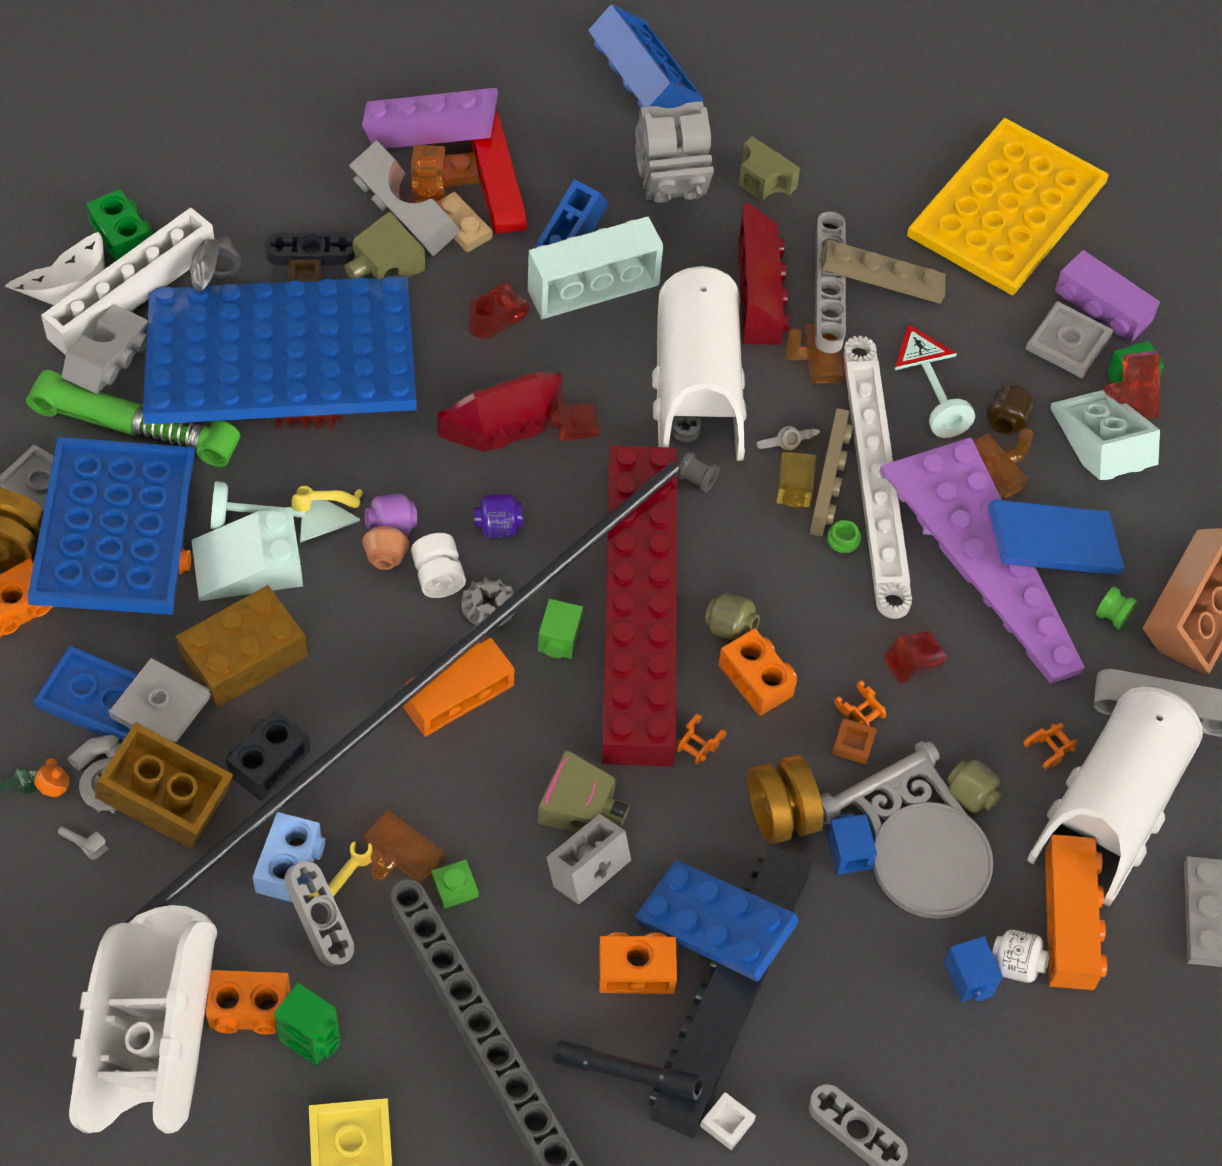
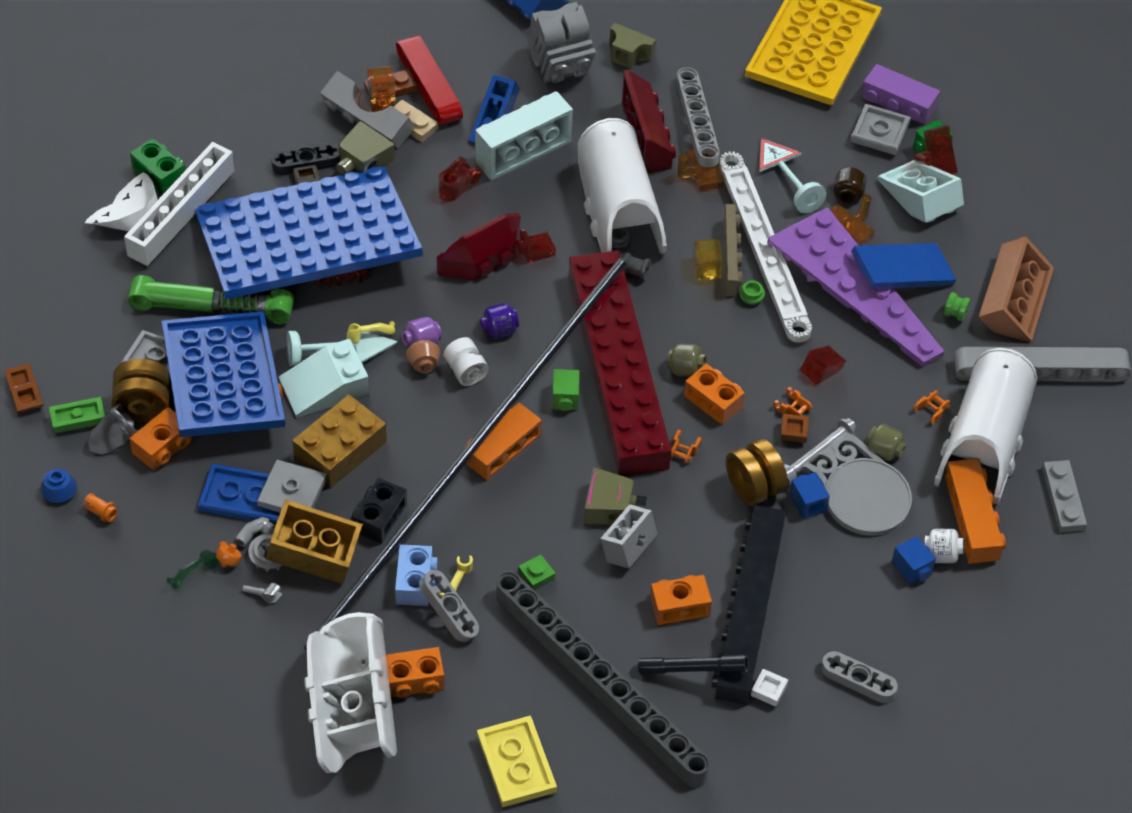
camera: 10 degrees left, 5 degrees down
(116, 341) = (180, 253): light grey arch -> none
(205, 261) = (234, 181): flat silver piece -> none
(307, 1025) = (463, 677): green brick -> none
(401, 847) = (492, 555): clear orange plate -> none
(431, 118) = (372, 48): medium lavender slope -> none
(473, 599) = (496, 380): light grey gear -> none
(717, 920) = (729, 558): blue plate -> none
(787, 438) = (694, 232): light grey piece -> none
(883, 271) = (735, 103): dark tan plate -> none

